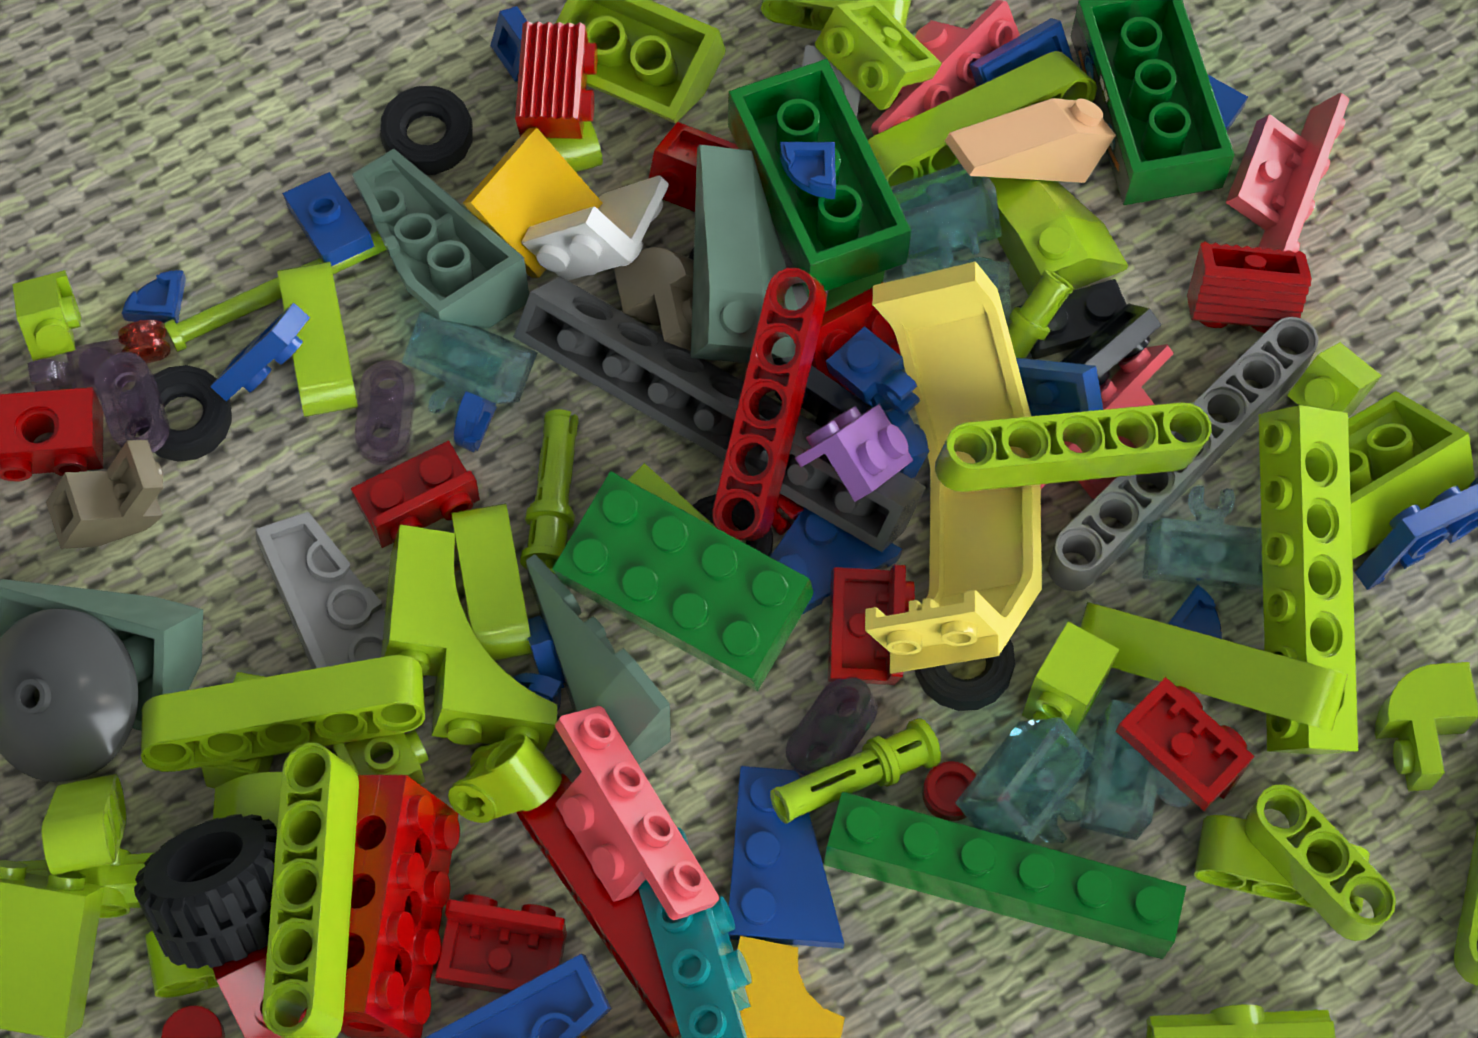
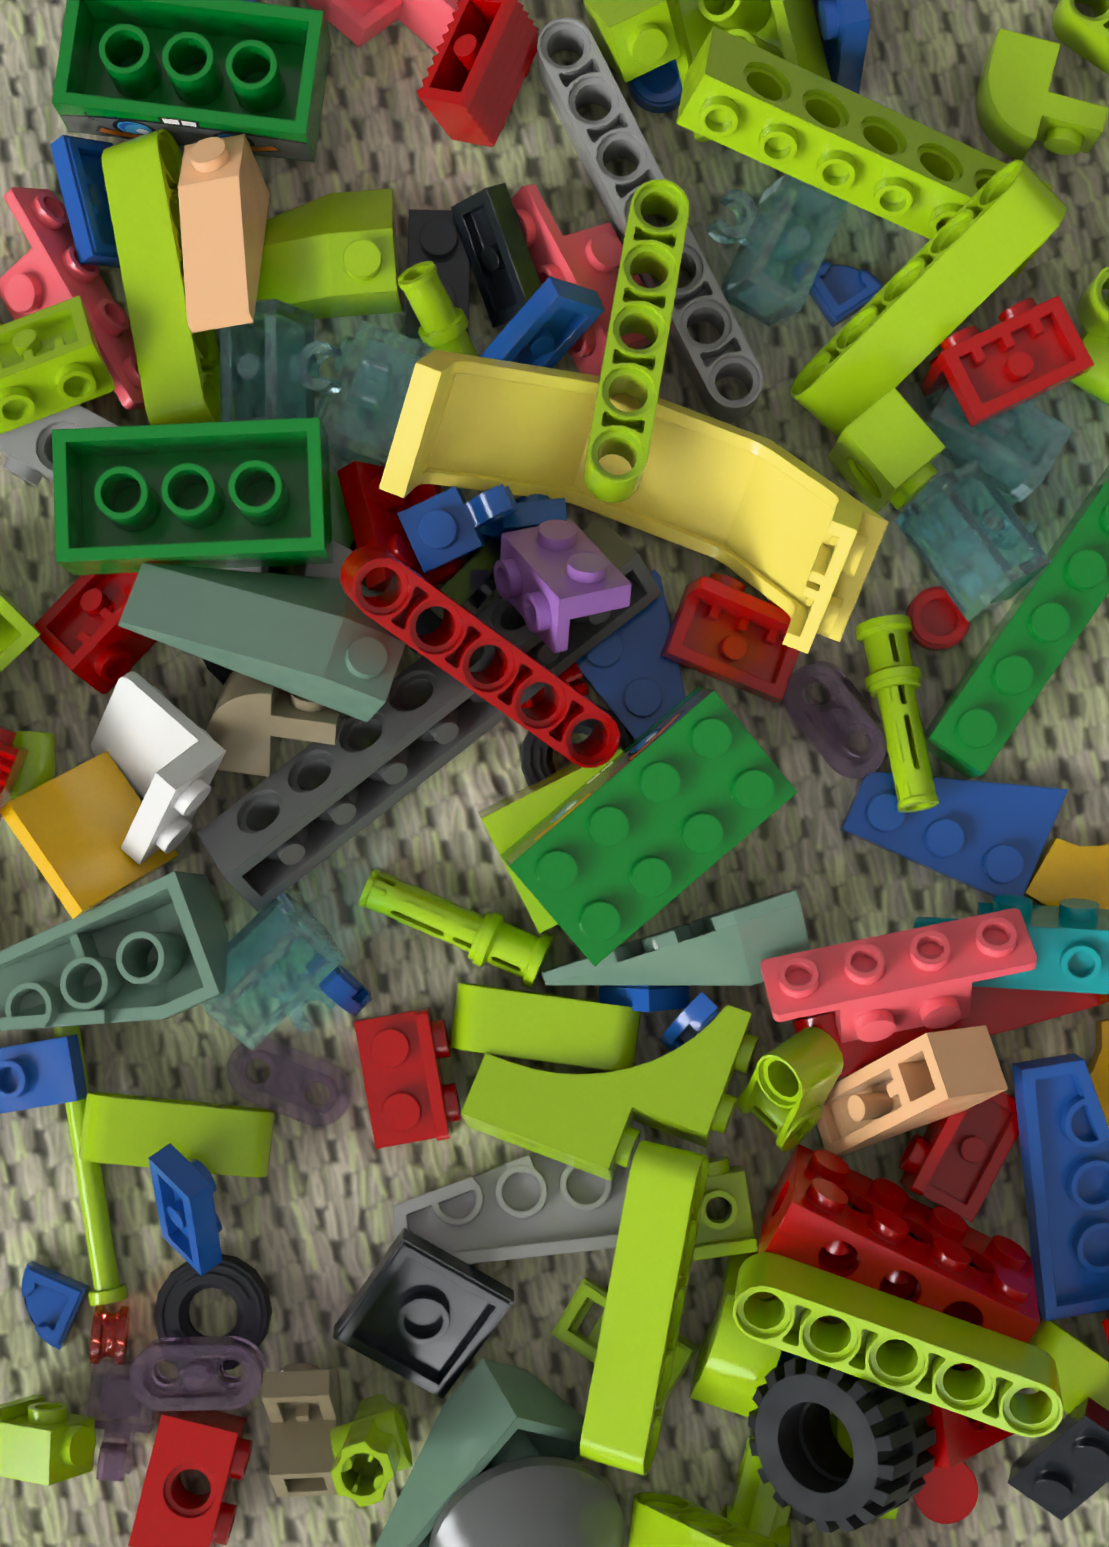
camera: 70 degrees left, 20 degrees up
(107, 533) = (370, 1450): none -> lime piece
(227, 558) = (423, 1313): none -> black tile
(538, 869) = (911, 1088): none -> light nougat slope
(810, 166) = (199, 502): blue tile -> none

